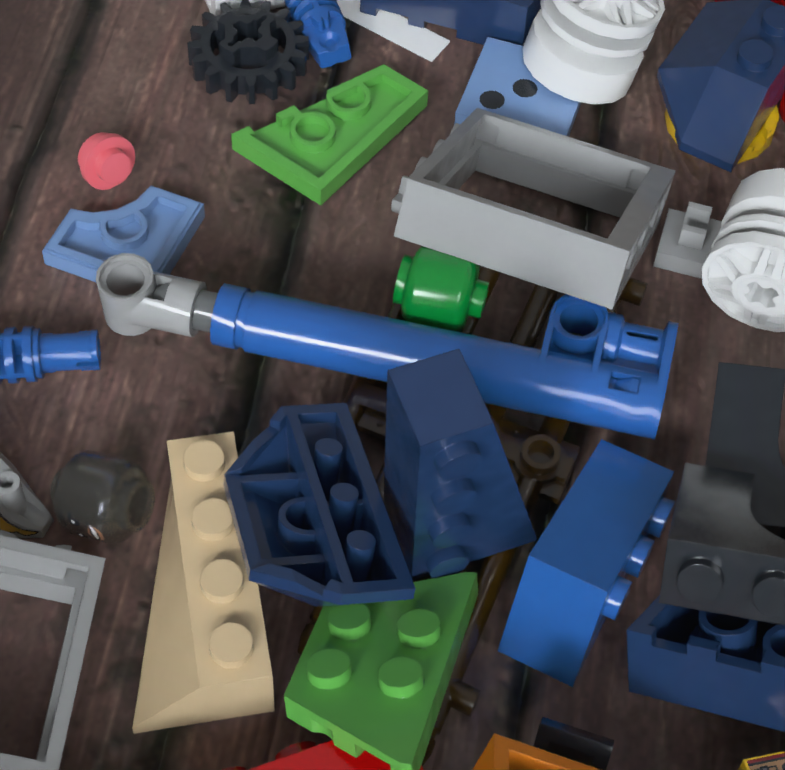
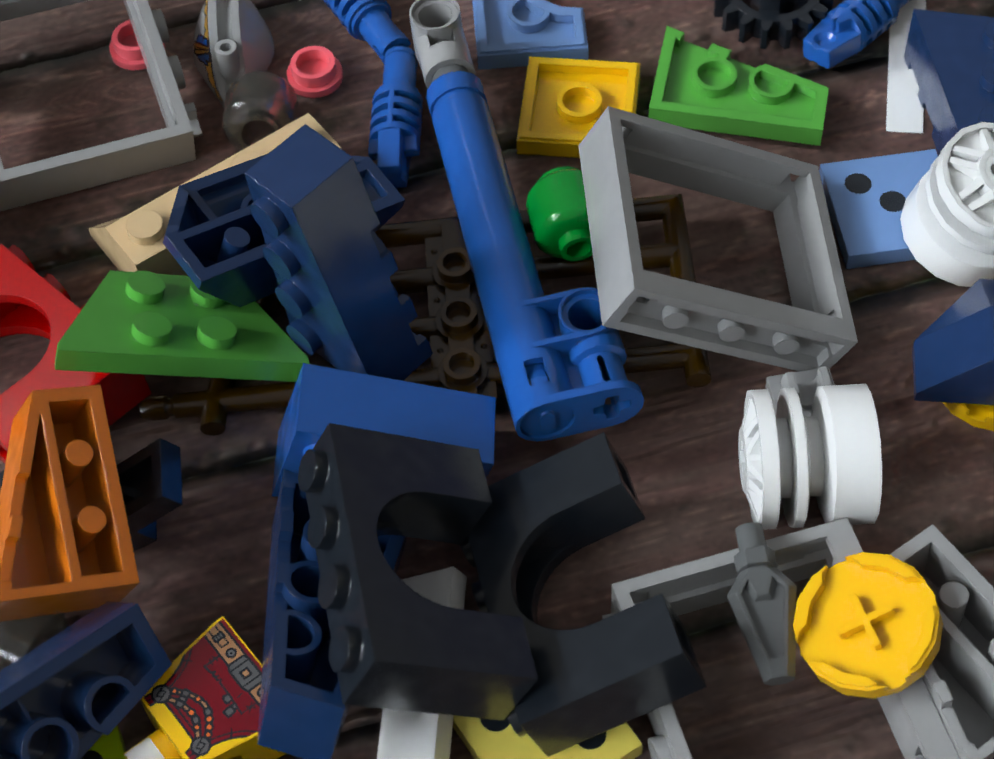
camera: 70 degrees right, 0 degrees up
(68, 430) = (314, 72): none -> coral plate
(184, 386) = (396, 116): none -> blue hinge
(265, 242) = (568, 98): none -> yellow tile

